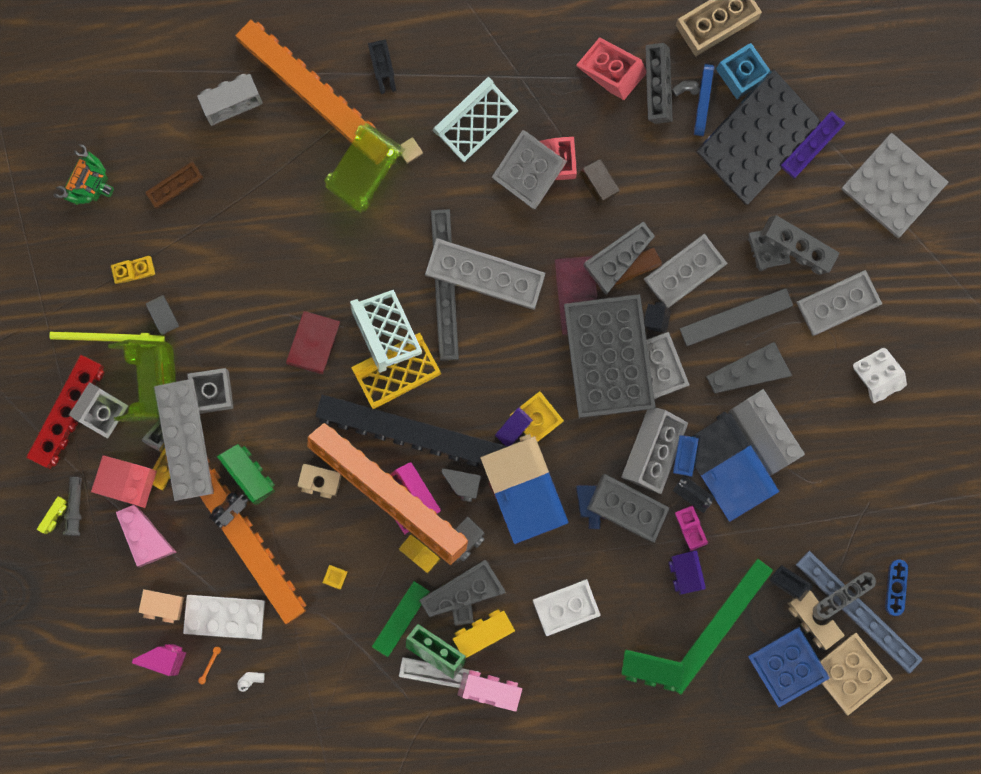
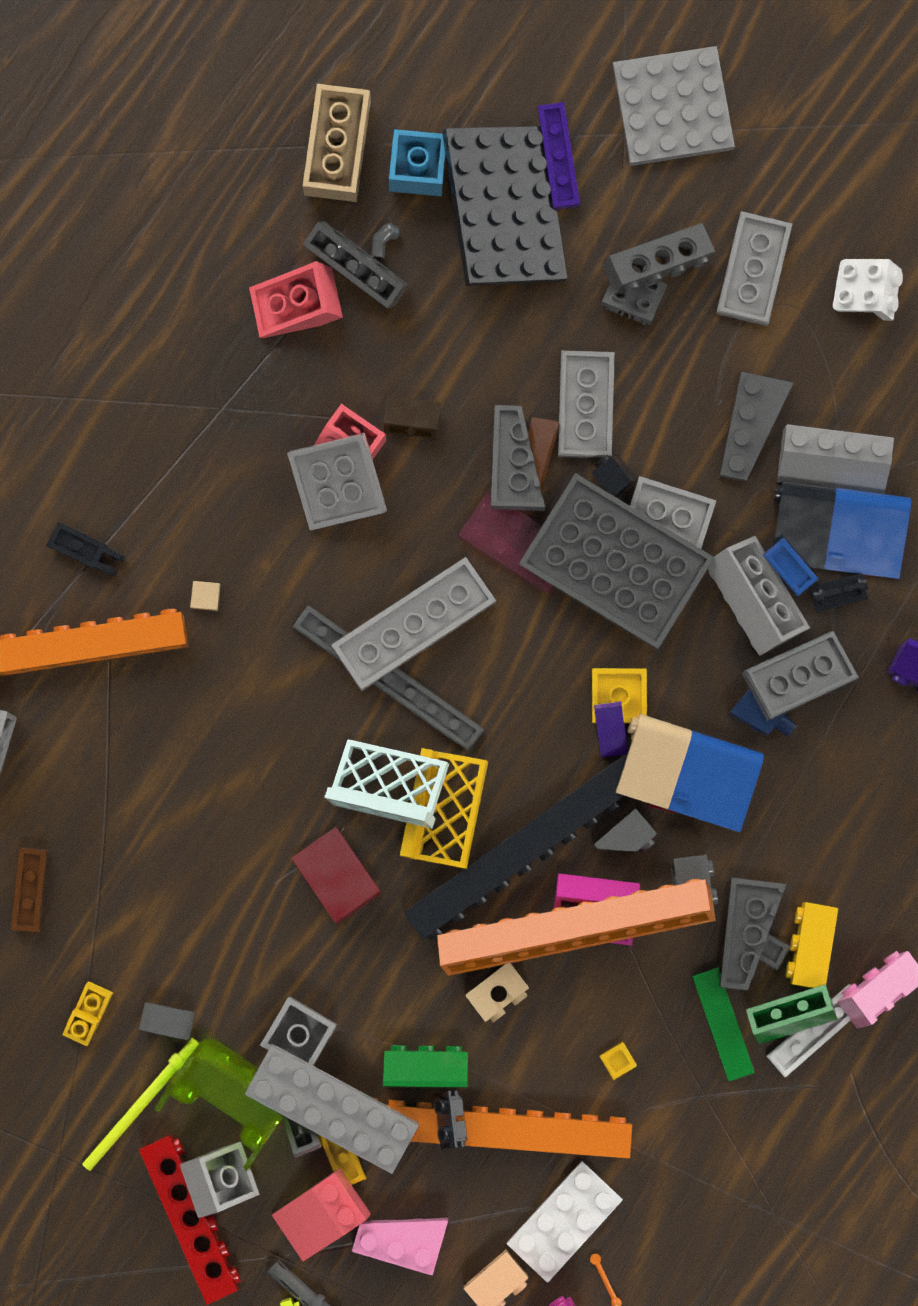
camera: 50 degrees left, 0 degrees up
(248, 679) = (656, 1249): white arm -> none
(363, 167) = (185, 661): clear neon green windscreen -> none
(419, 554) = (667, 946): yellow slope -> none
(468, 104) = (207, 500): light aqua fence -> none
(566, 607) = (853, 831): white tile -> none
(691, 528) = (874, 625): dark pink slope -> none
(703, 102) = (413, 231): blue beam -> none
(736, 317) = (681, 391): dark grey tile -> none

